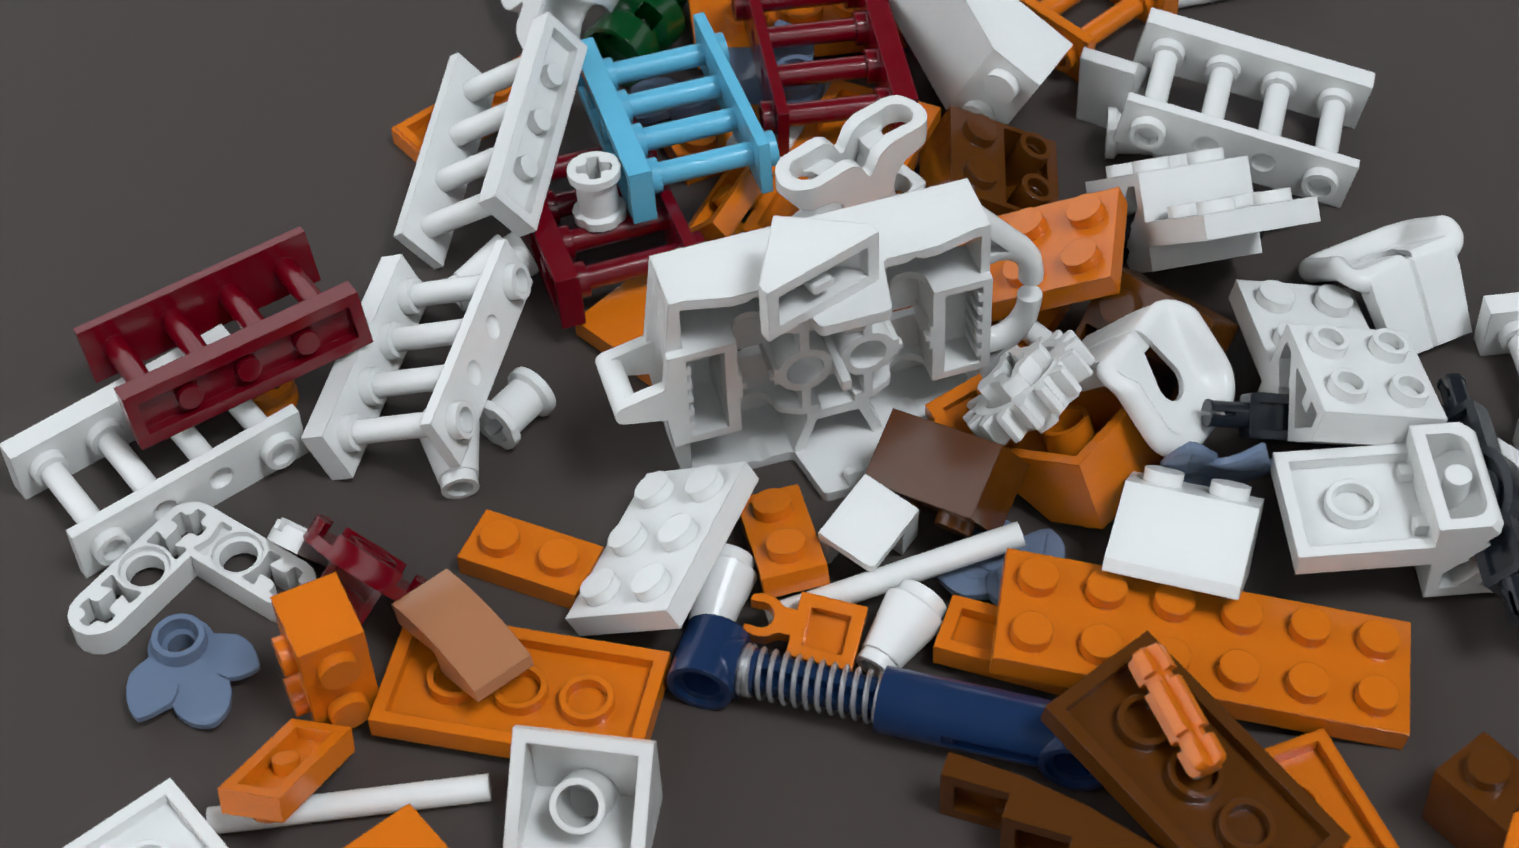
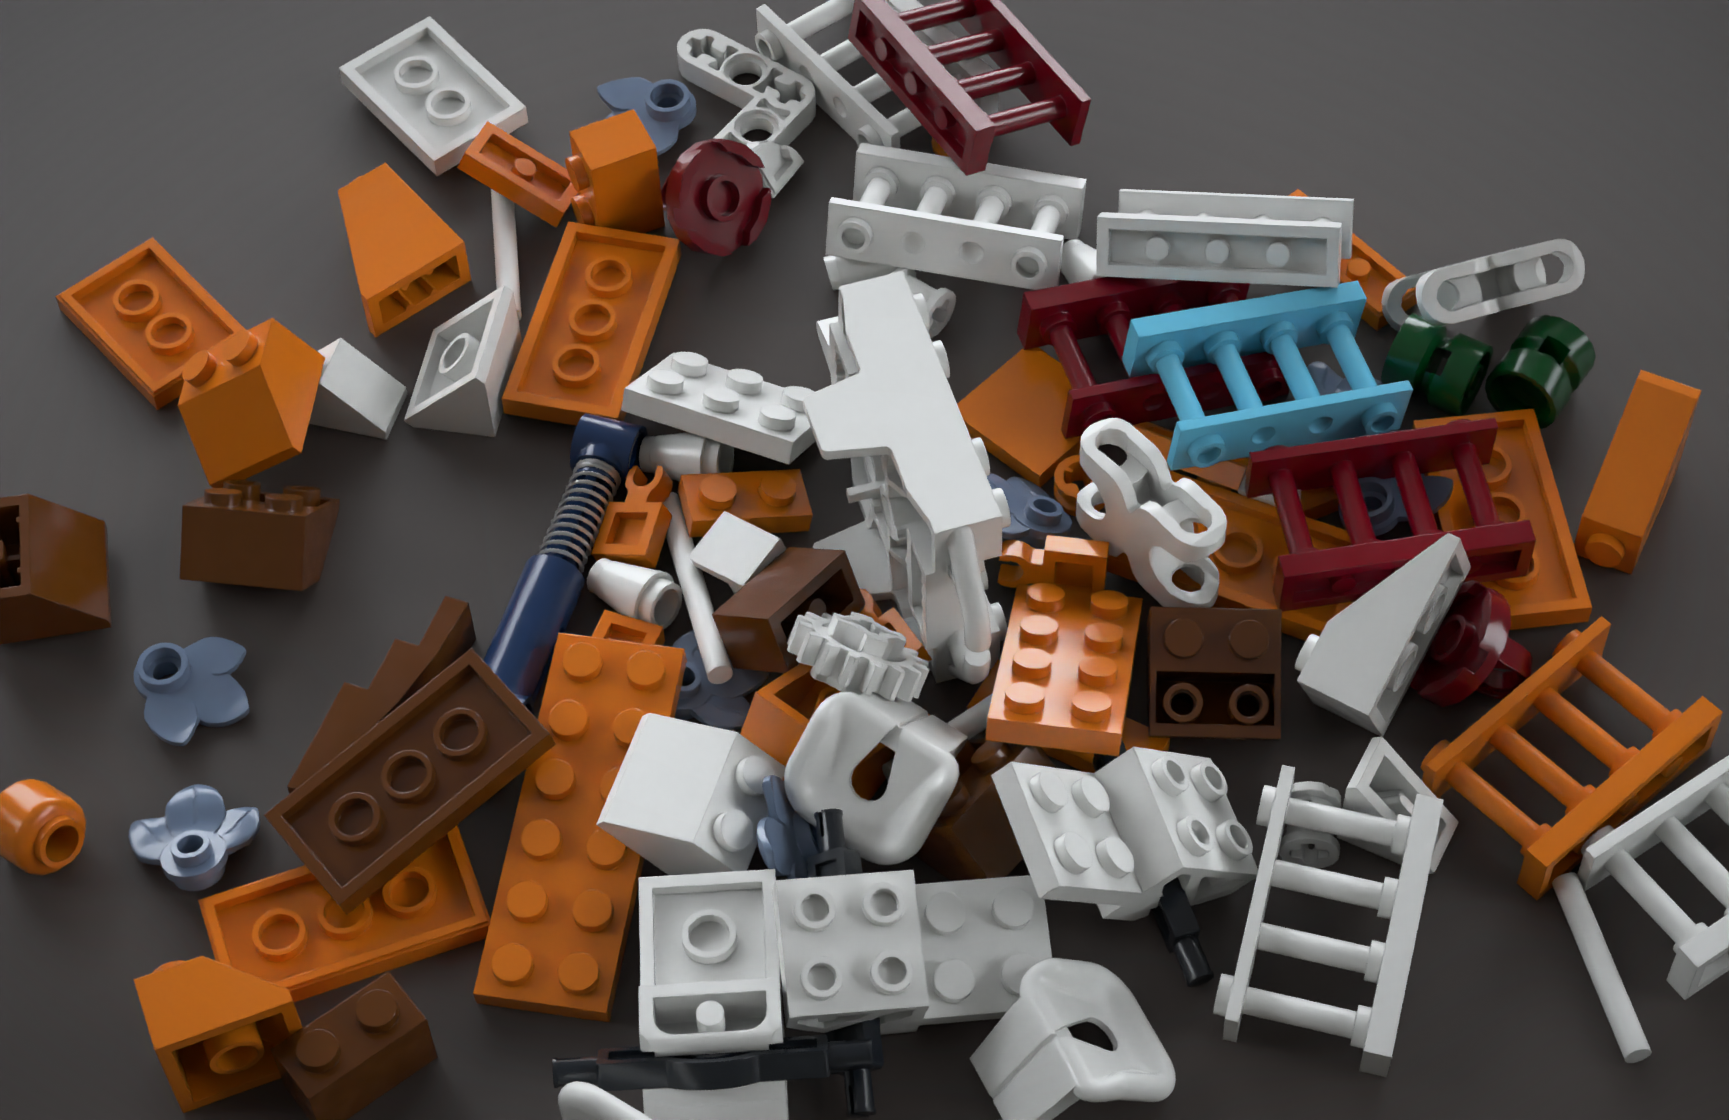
camera: 90 degrees right, 5 degrees up
(464, 634) = (621, 268): nougat slope -> none
(528, 558) = (750, 324): orange plate -> none
(595, 181) = (1161, 300): white bush -> none
(813, 268) = (842, 362): white slope -> none
(1177, 711) = (452, 746): orange axle -> none

